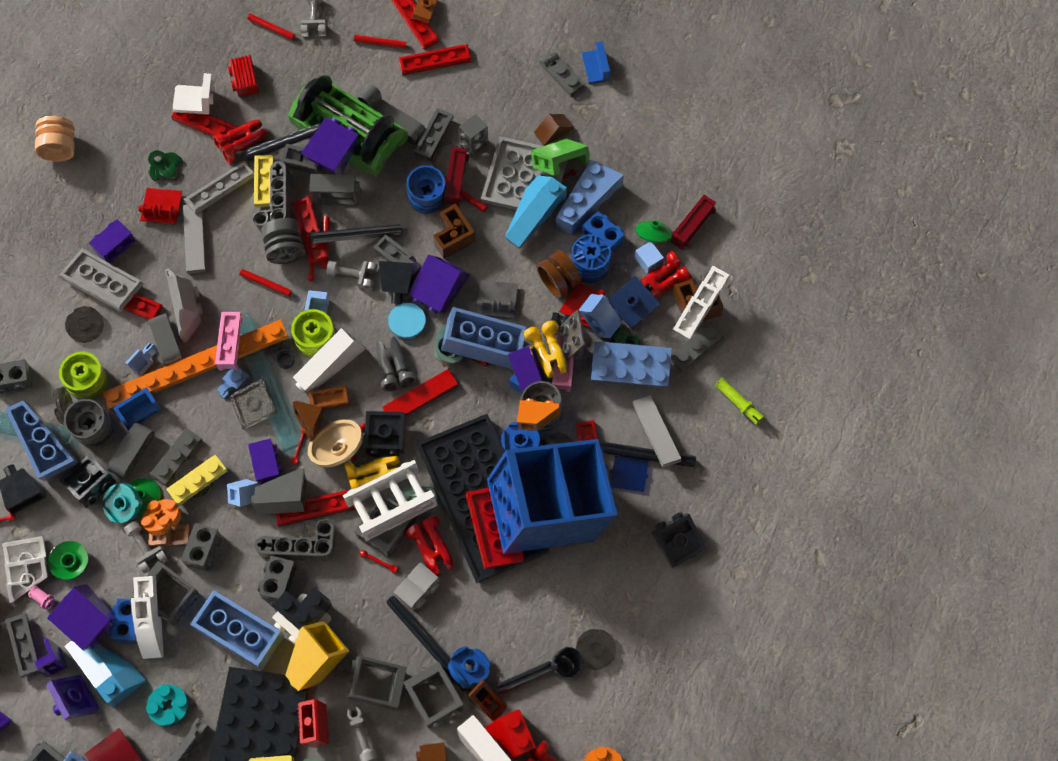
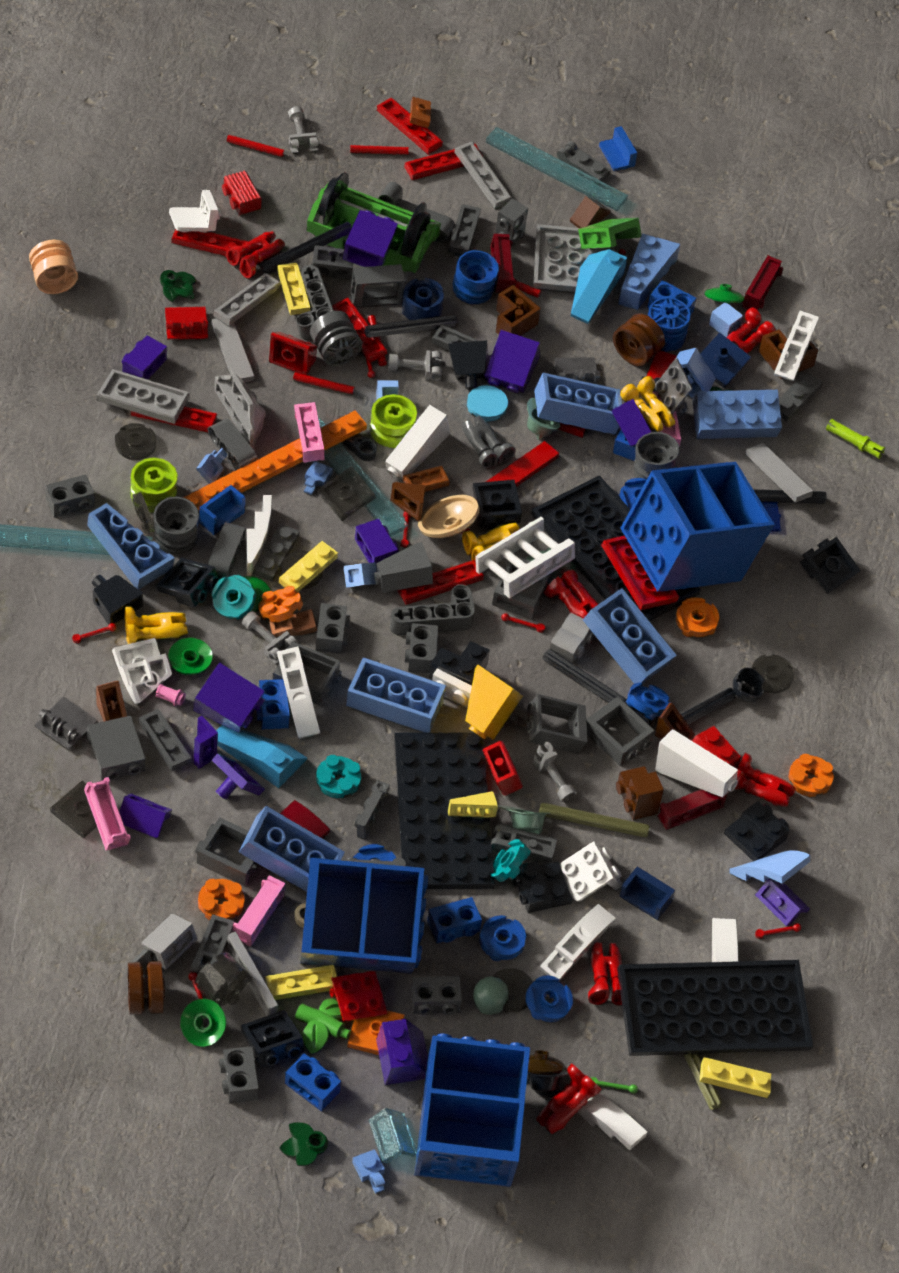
camera: 20 degrees left, 15 degrees down
(27, 516) = (154, 626): none -> yellow piece
(160, 444) = (257, 537): none -> white slope
(242, 248) = (292, 353): none -> red slope
(373, 207) = (422, 299): none -> dark blue brick
(464, 600) = (629, 637): none -> medium blue brick
(465, 78) = (483, 174): none -> light grey tile
(532, 588) = (693, 627): none -> orange plate
(536, 77) = (556, 169): none -> clear light blue tile
(536, 415) = (659, 456): orange slope -> none

